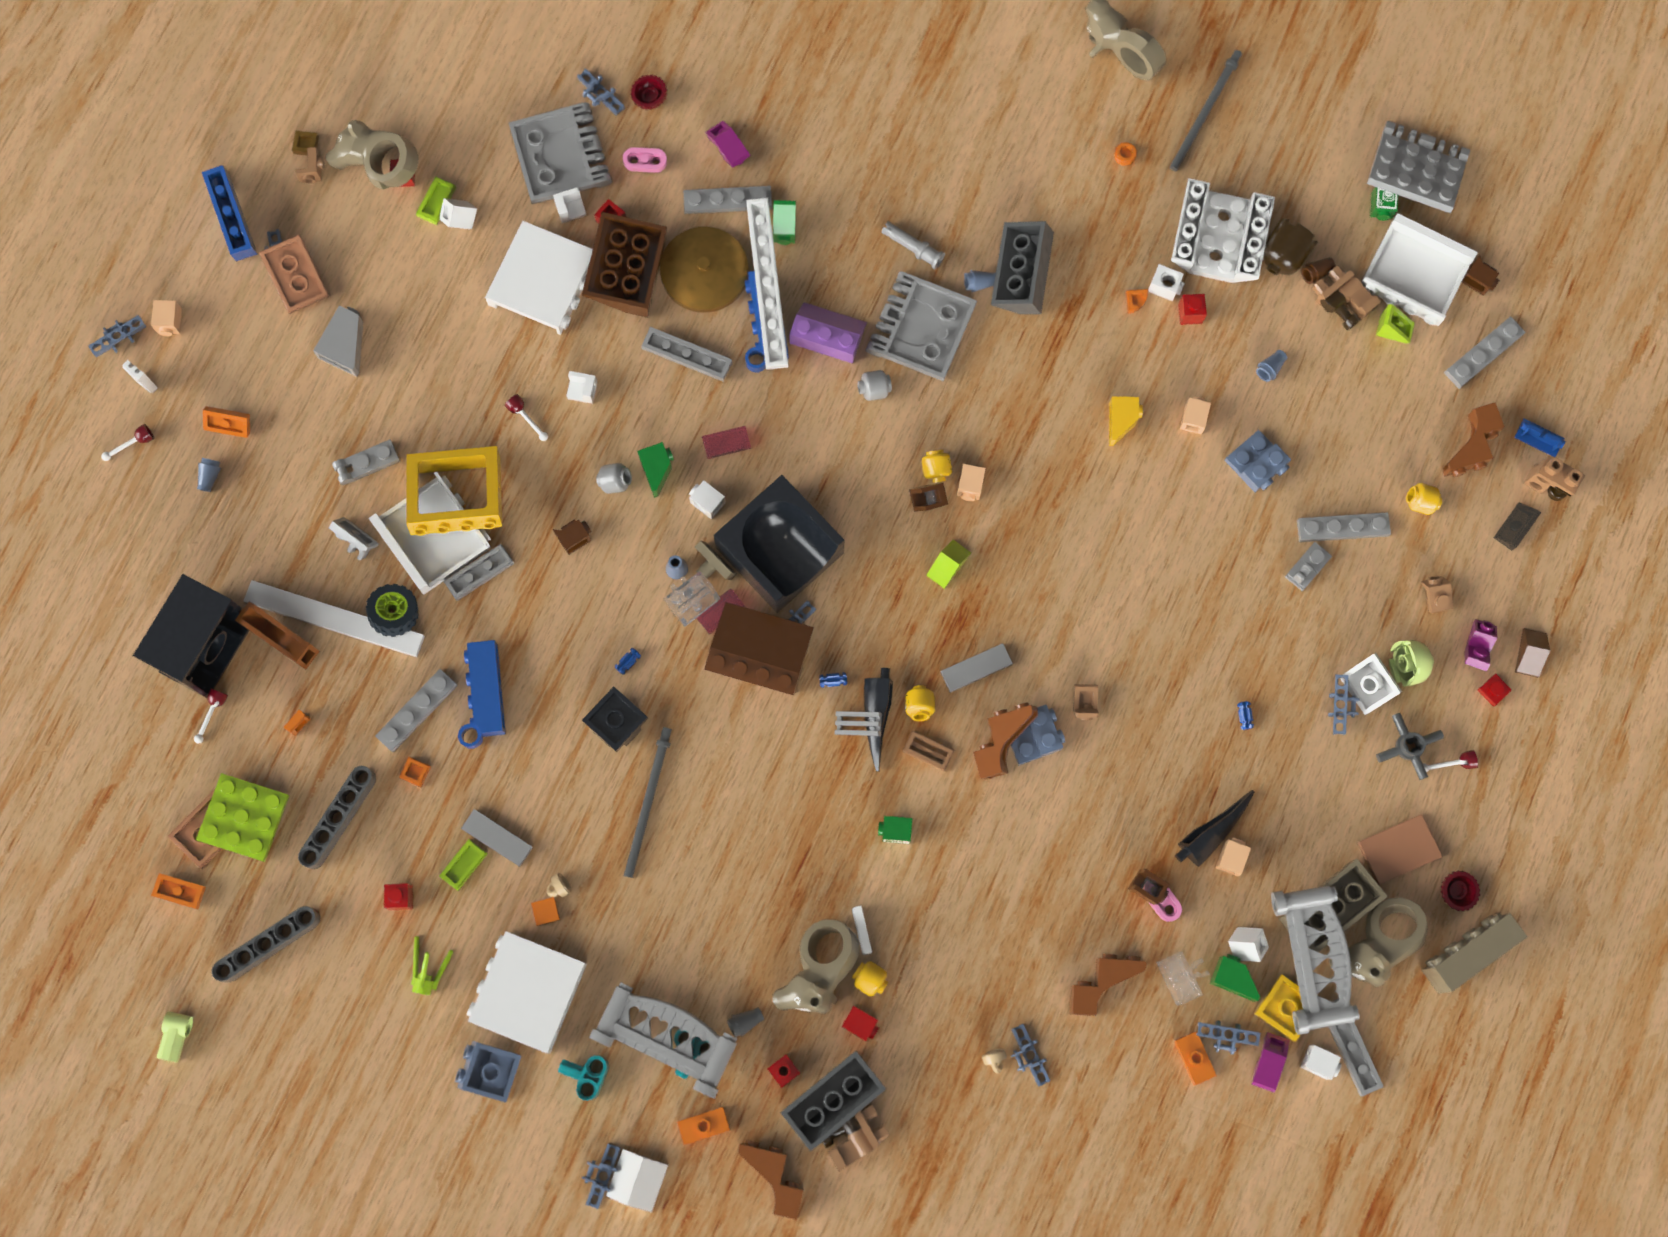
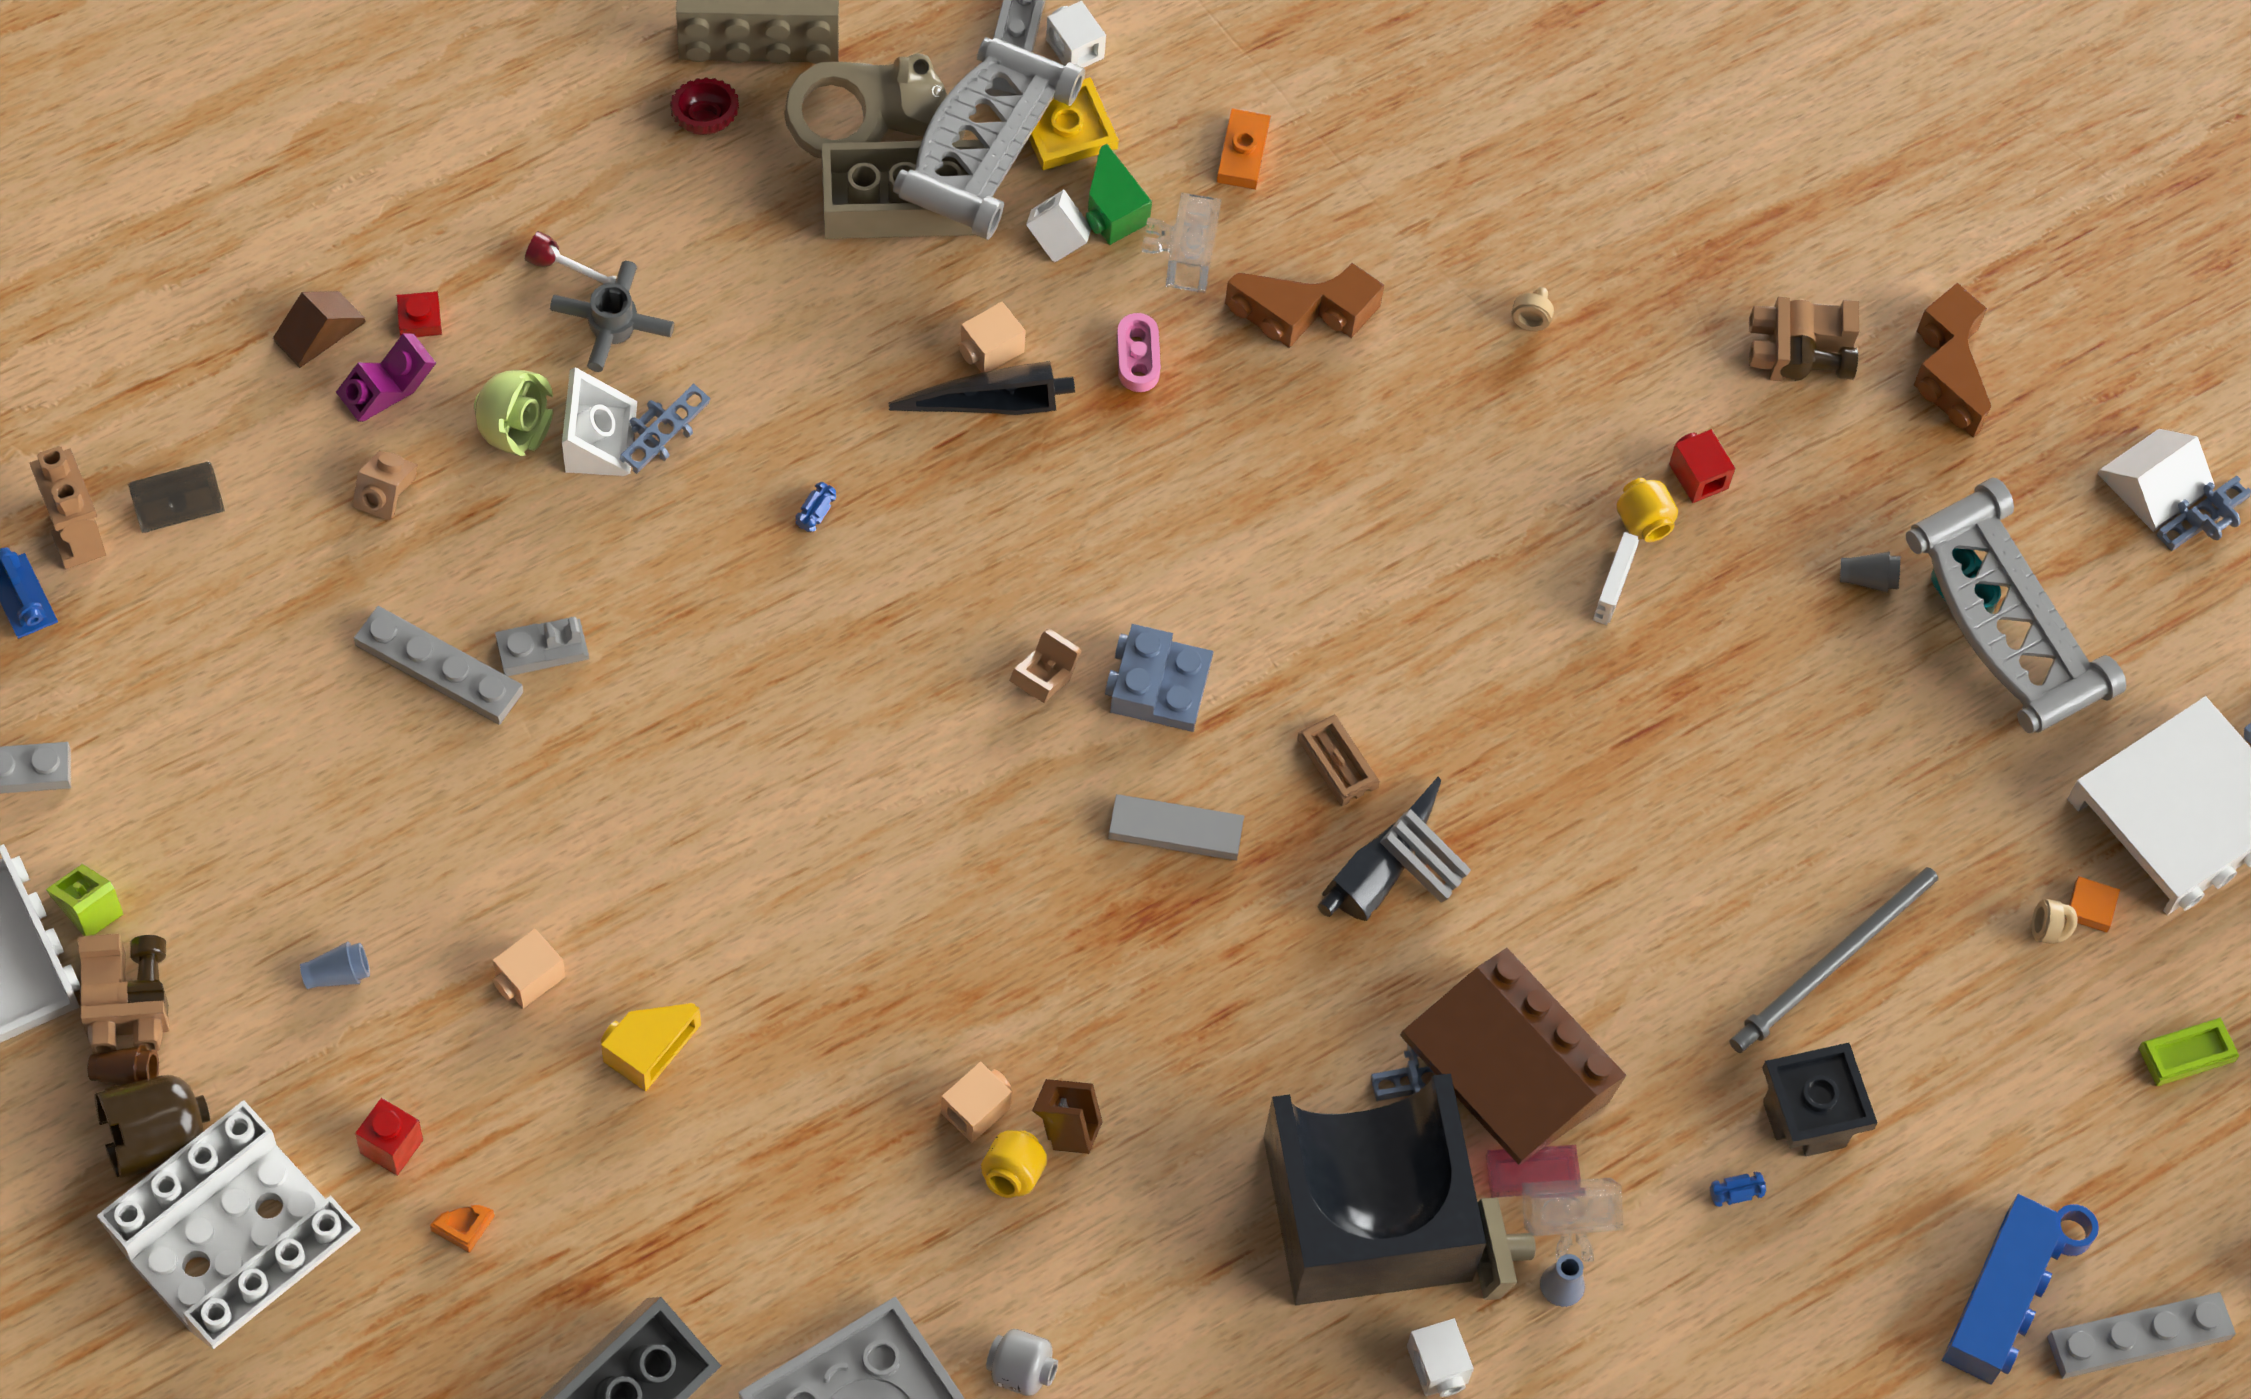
camera: 150 degrees left, 15 degrees down
(415, 772) = (2194, 1240): orange tile -> none
(497, 837) = (2112, 1057): light grey tile -> none
(585, 1075) = (2156, 641): teal beam -> none
(703, 1126) = (2029, 486): orange plate -> none
(792, 1071) = (1854, 477): red plate -> none
(815, 985) = (1739, 543): dark tan animal -> none
(833, 679) = (1418, 951): blue piece -> none
(833, 1101) = (1809, 391): dark grey slope -> none
(895, 829) = (1469, 677): green brick -> none
(920, 703) = (1305, 826): yellow head -> none
(948, 563) = (1102, 1005): lime slope -> none
(1005, 729) = (1204, 695): dark orange arch -> none
(1029, 1062) = (1475, 298): sand blue piece -> none
(1149, 887) = (1152, 364): reddish brown window -> none
(1159, 288) = (399, 1228): white brick -> none
(1235, 1038) = (1171, 133): sand blue piece -> none
(1258, 461) = (486, 839): sand blue plate -> none
(1271, 1062) = (1149, 70): magenta slope -> none
(1399, 849) = (741, 209): nougat tile -> none
(1424, 498) = (283, 618): yellow head -> none
(1475, 454) = (143, 635): dark orange arch -> none

